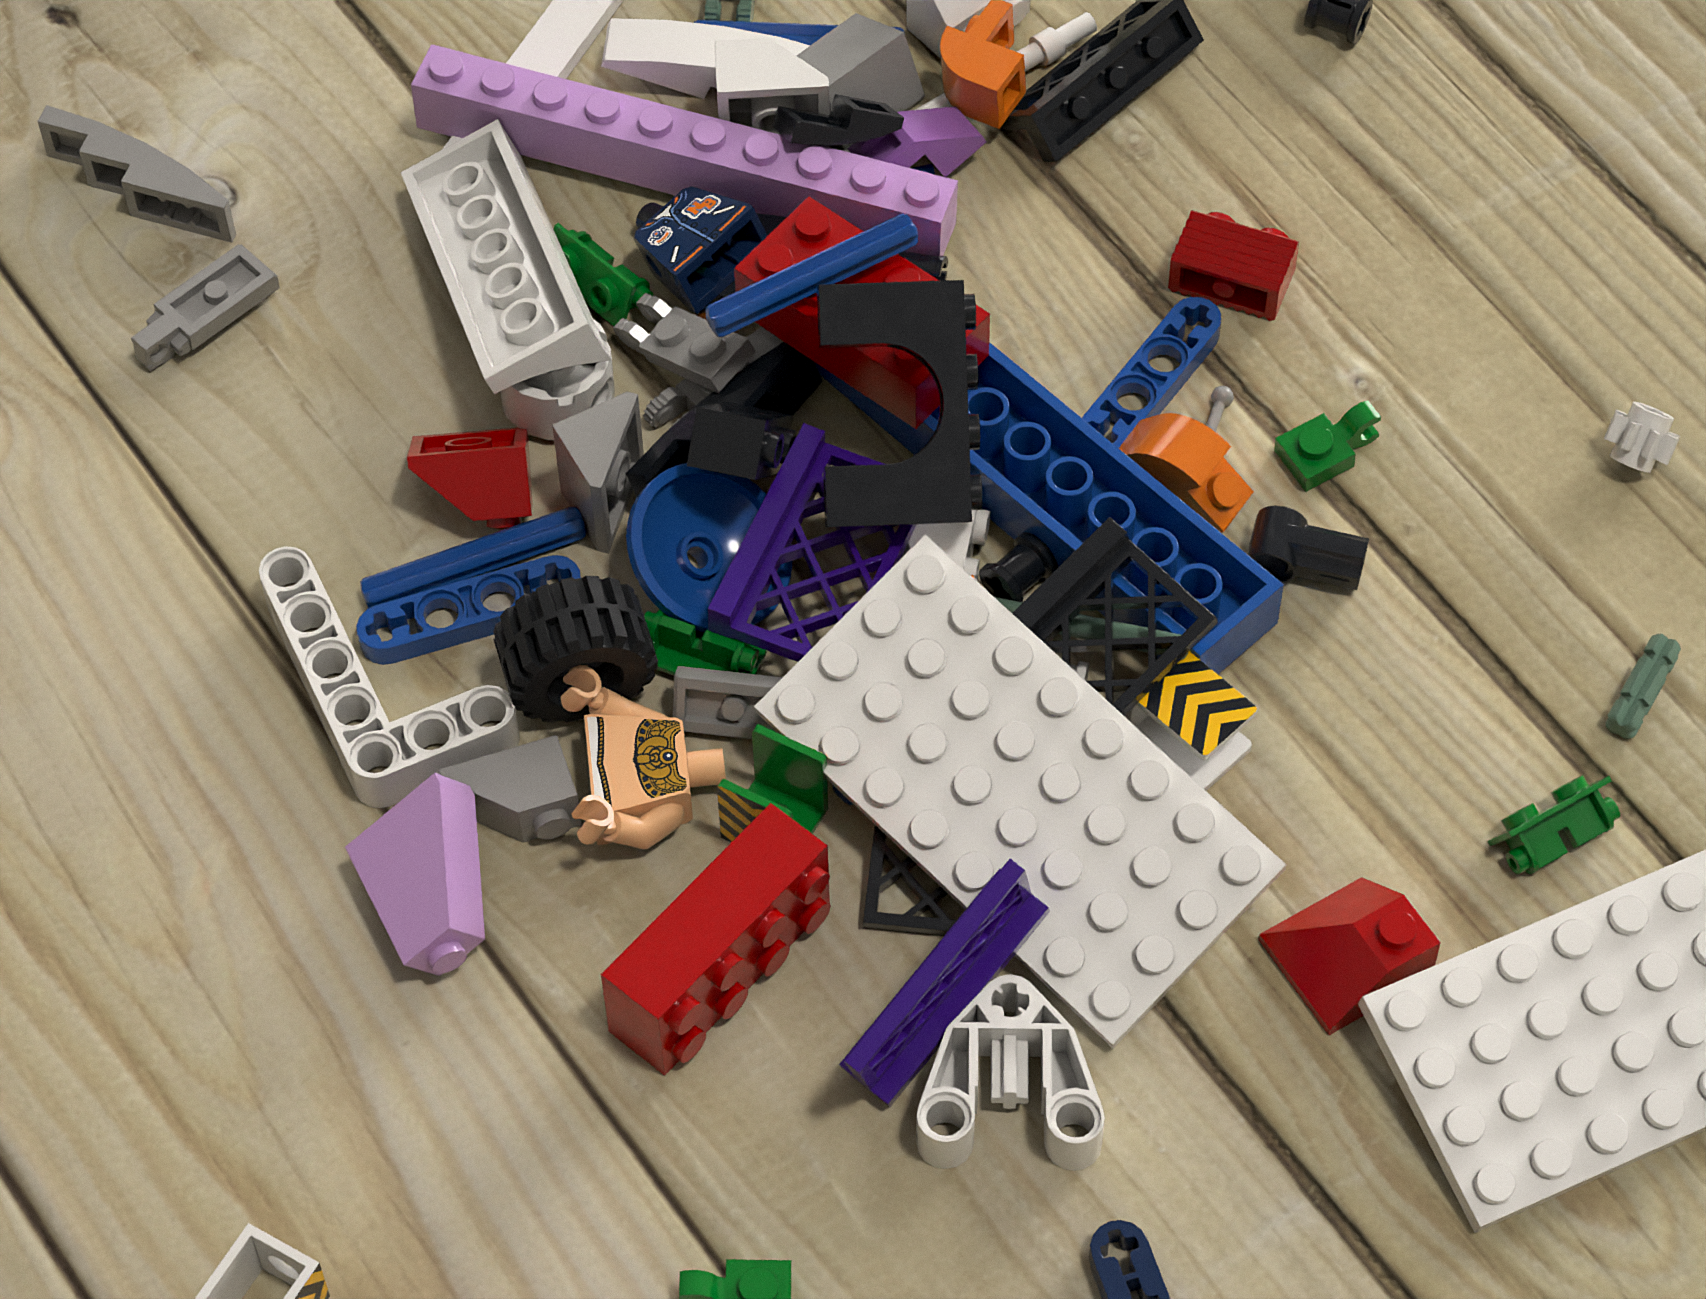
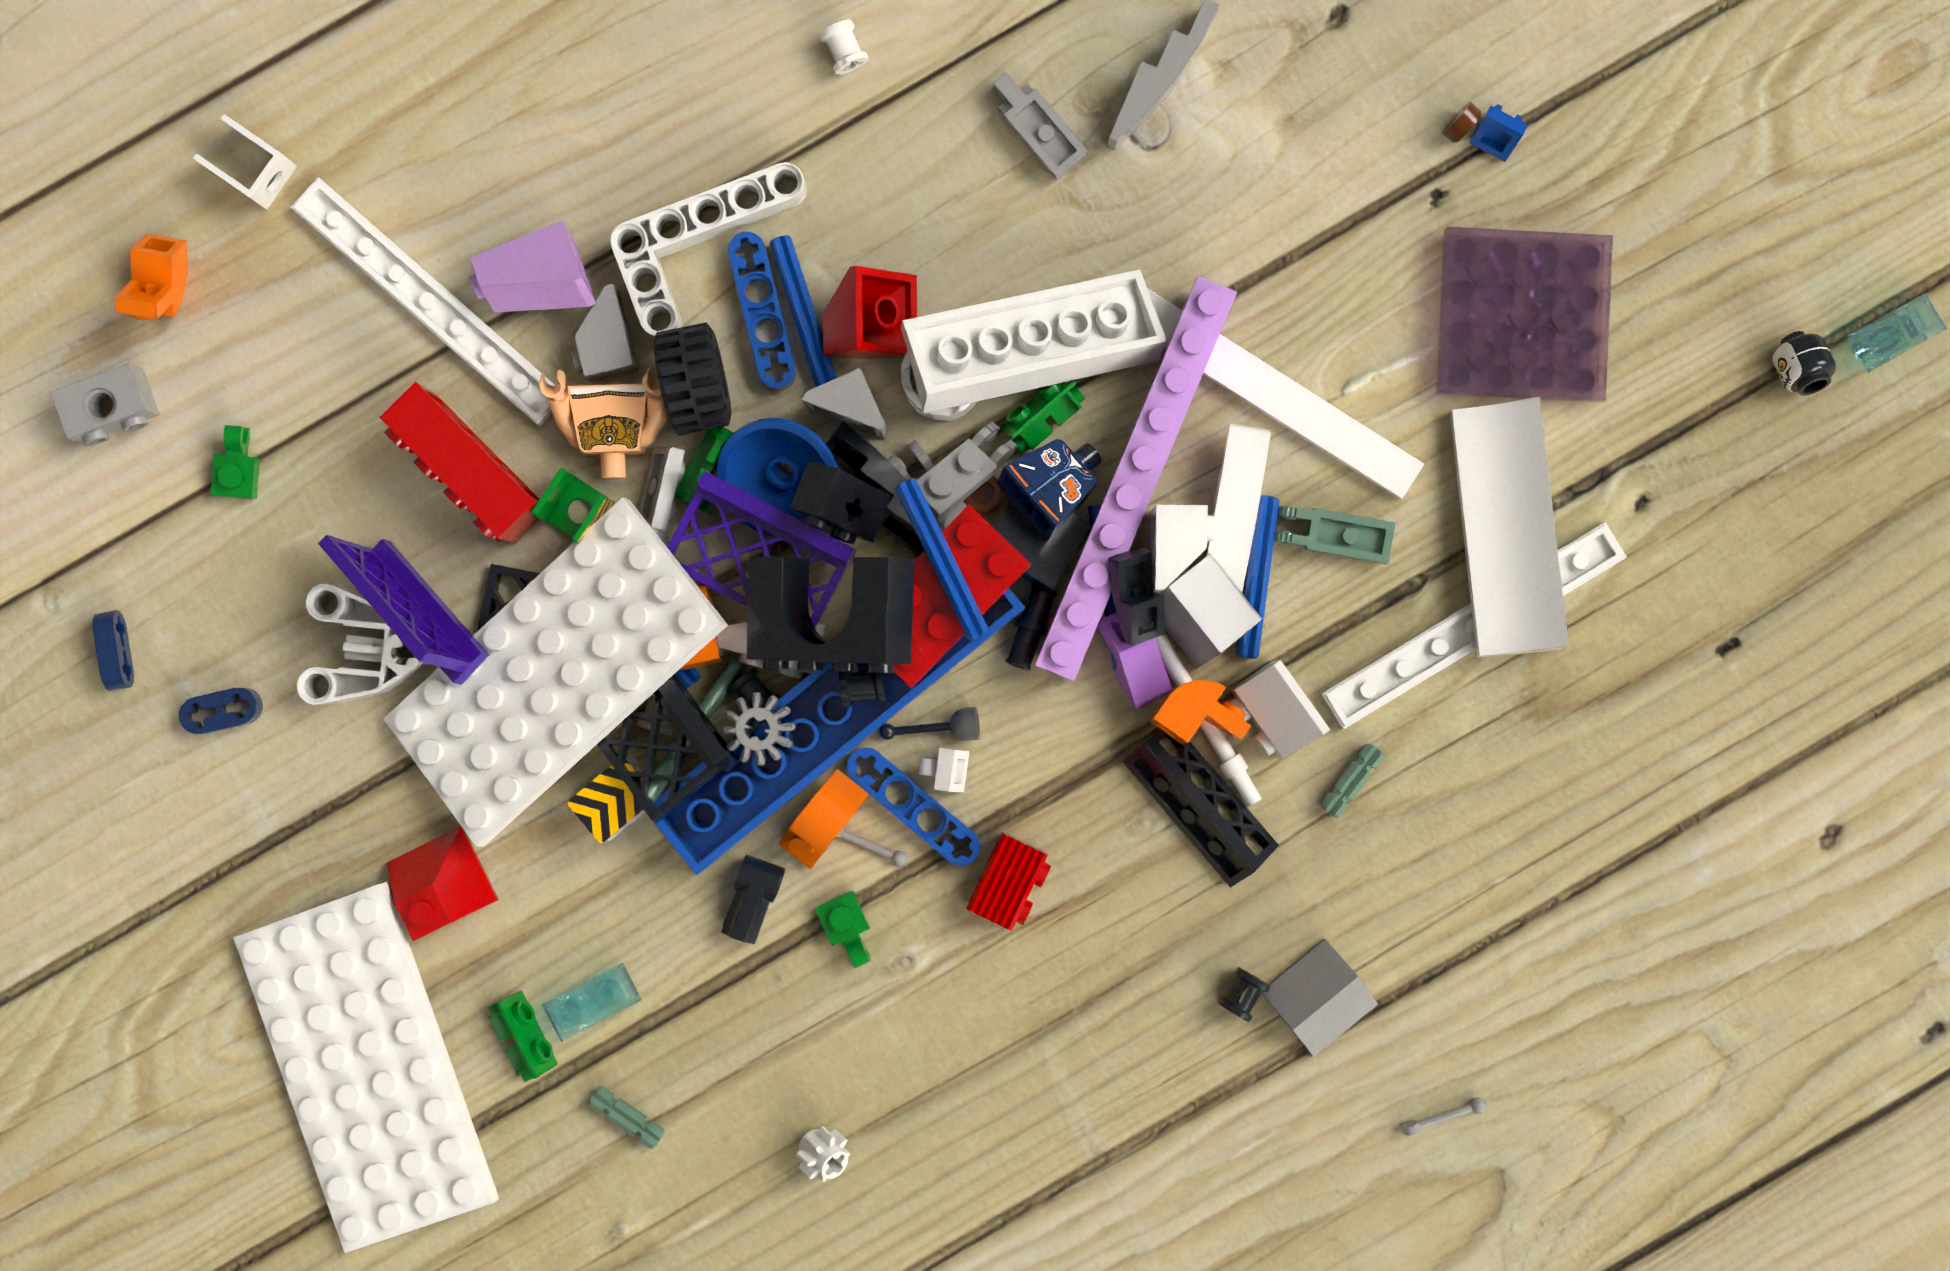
camera: 95 degrees right, 30 degrees up
(90, 533) = (843, 47): none -> white bush
(464, 1050) = (424, 298): none -> white tile
(995, 396) = (861, 687): none -> black bush
(1028, 330) = (963, 725): none -> hinge
(1065, 504) = (760, 714): none -> light grey gear
(1093, 338) = (948, 769): none -> white tile
(1485, 744) = (591, 1002): none -> clear light blue slope

